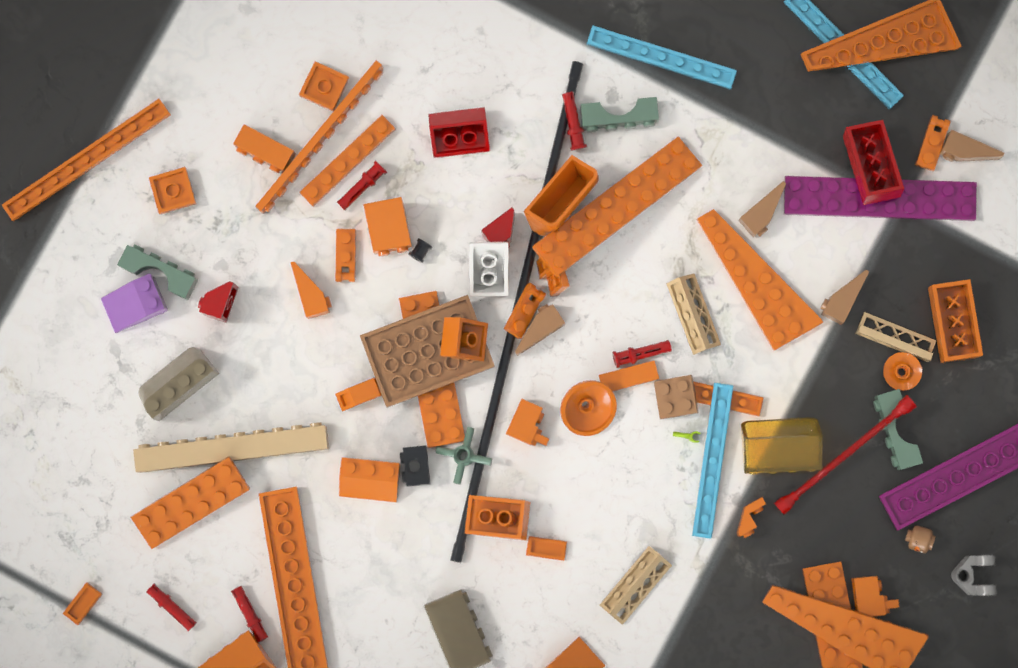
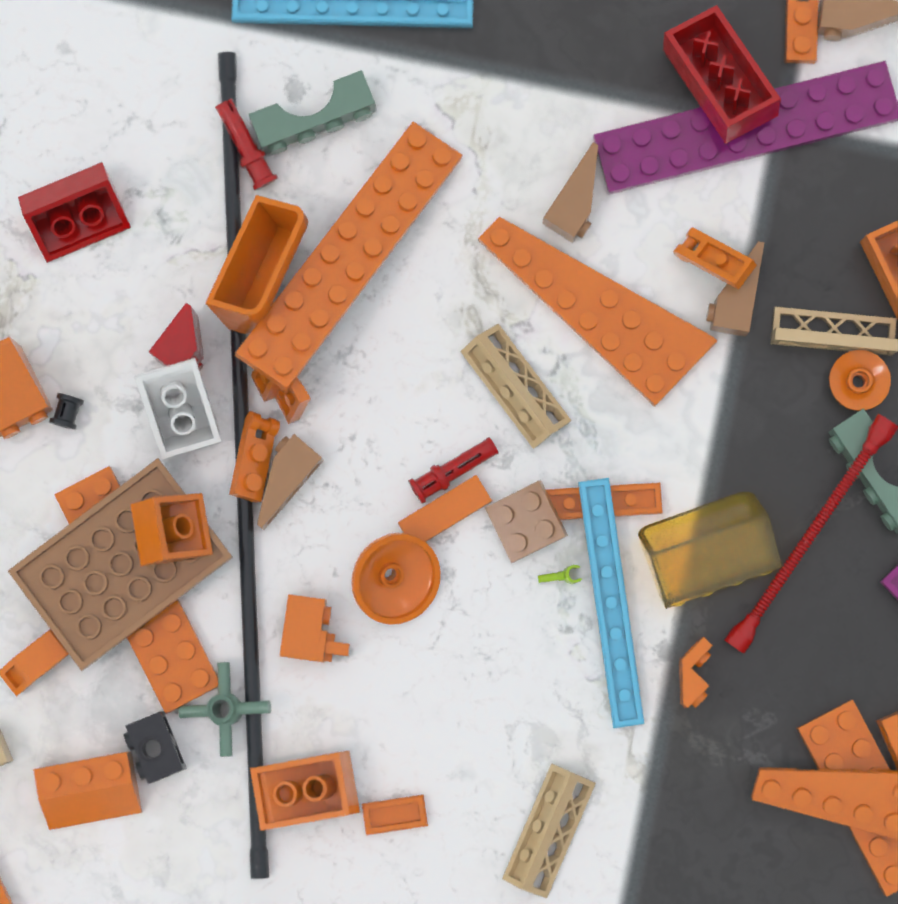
camera: 25 degrees left, 0 degrees up
(836, 272) = (715, 258): none -> orange plate

